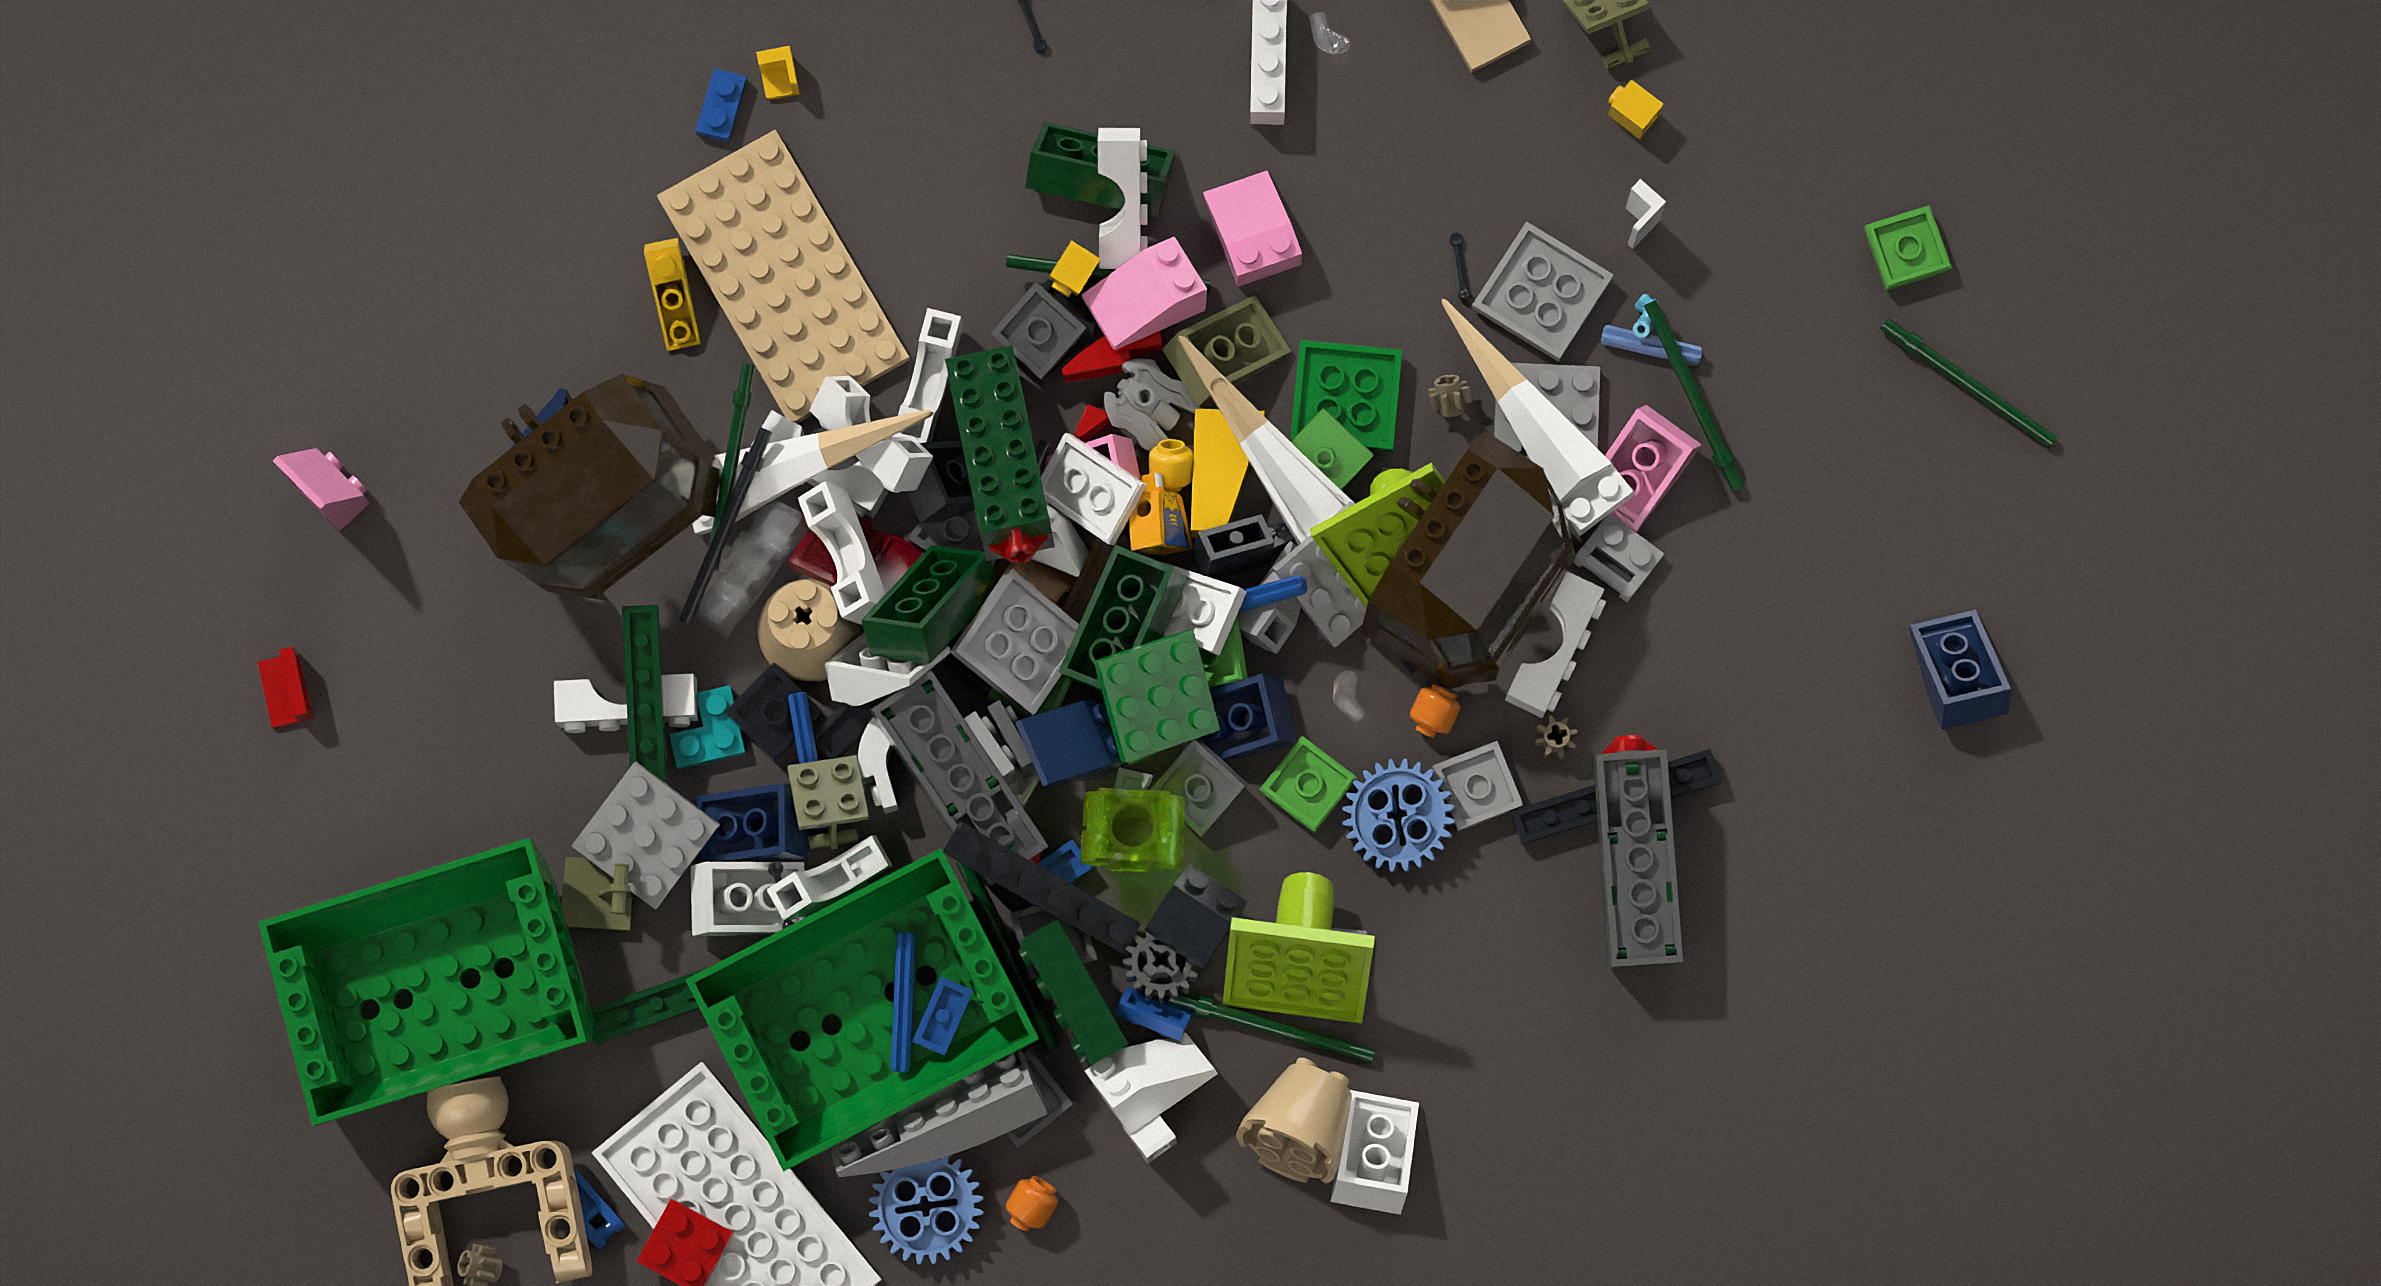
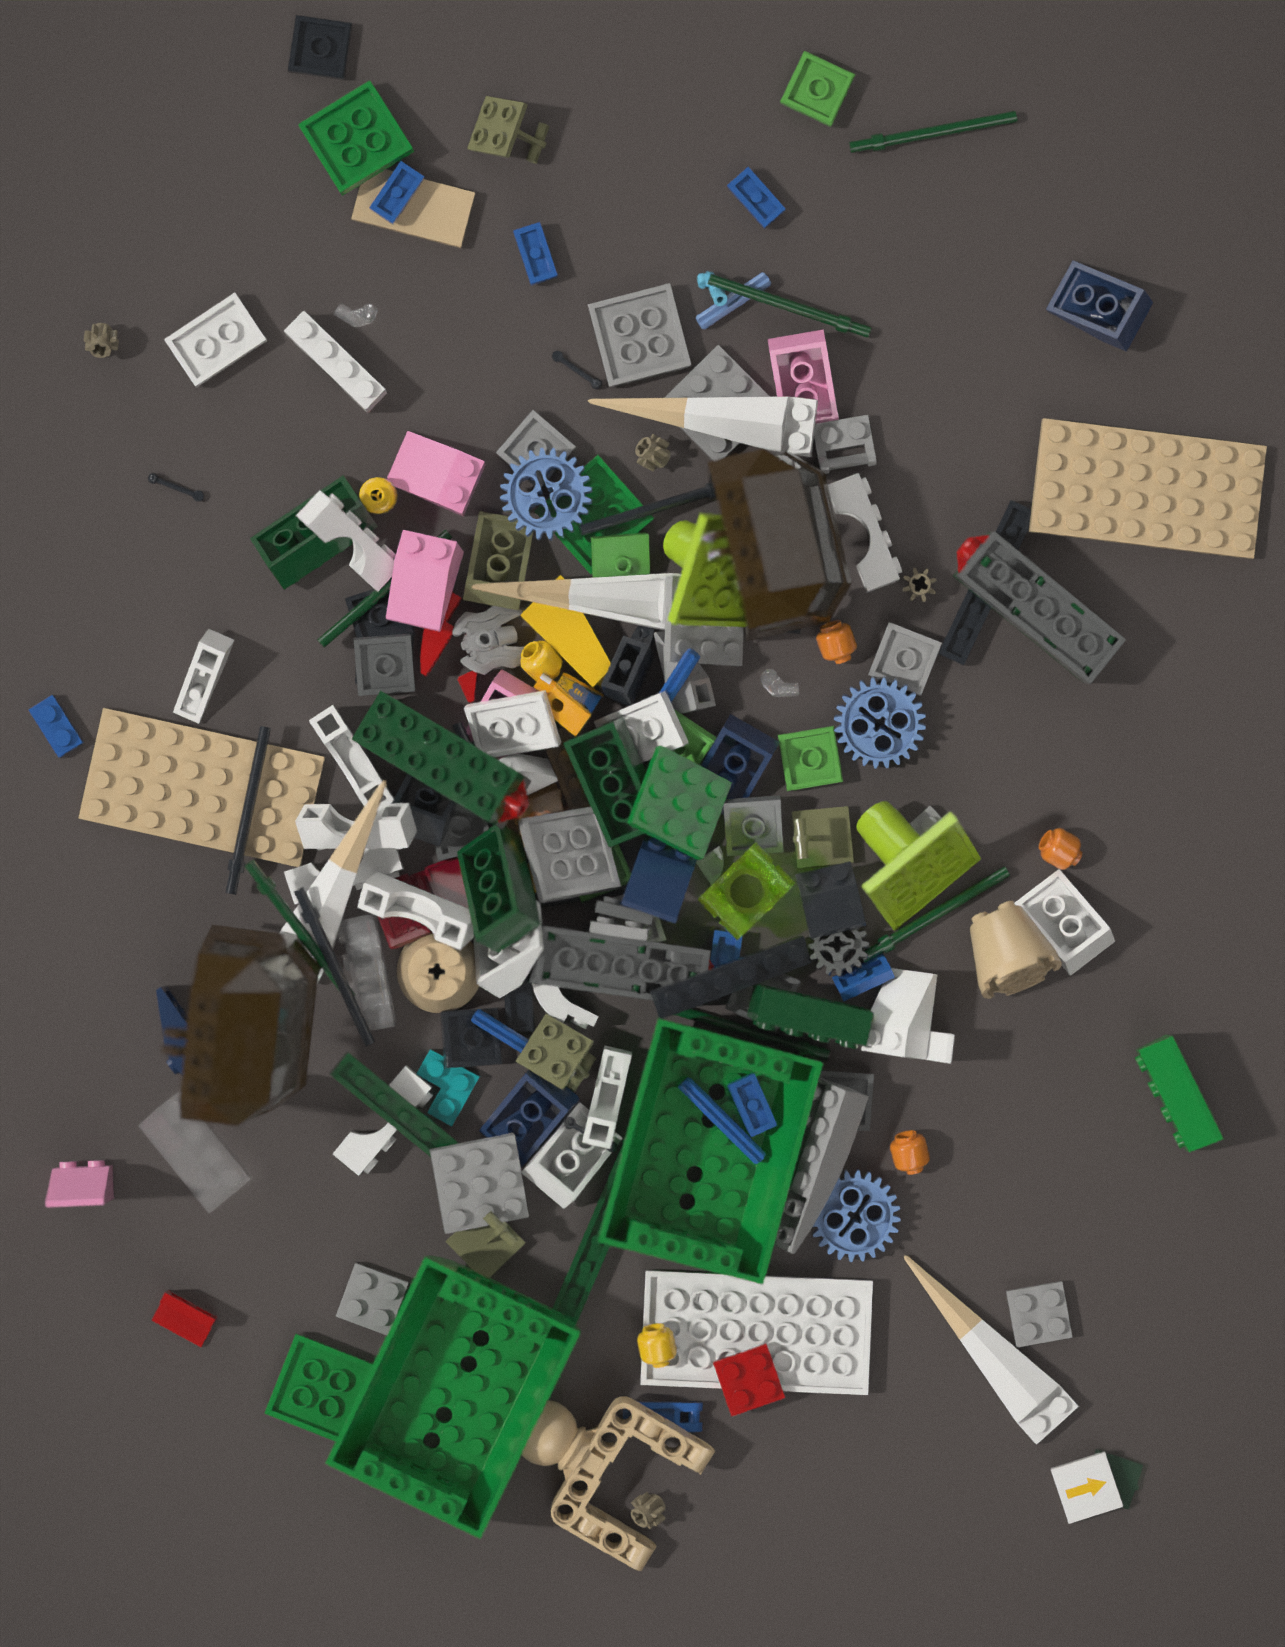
camera: 45 degrees left, 10 degrees up
(325, 856) = (317, 1387): none -> green plate
(445, 568) = (196, 1154): none -> clear slope
(451, 832) = (372, 1298): none -> light grey plate
(640, 1131) = (657, 1345): none -> yellow head
(672, 293) = (150, 864): yellow slope -> none
(778, 72) = (68, 673): yellow panel -> none
(798, 331) = (236, 864): none -> black bar
(885, 187) = (203, 675): none -> white slope
(1073, 270) = (366, 610): yellow brick -> none
(1183, 203) = (388, 498): none -> yellow head
(1246, 858) = (822, 837): none -> olive plate
(1296, 321) = (569, 485): none -> medium blue gear
(1355, 294) = (533, 435): none -> light grey plate
(1385, 430) = (649, 509): none -> black bar
(1438, 1085) = (1060, 848): none -> orange head
(1527, 138) = (535, 253): none -> blue plate
(1634, 108) = (577, 171): yellow brick -> none
(1647, 208) = (648, 224): white panel -> none
(1760, 282) = (756, 197): none -> blue plate
(1838, 863) = (1147, 488): none -> tan plate

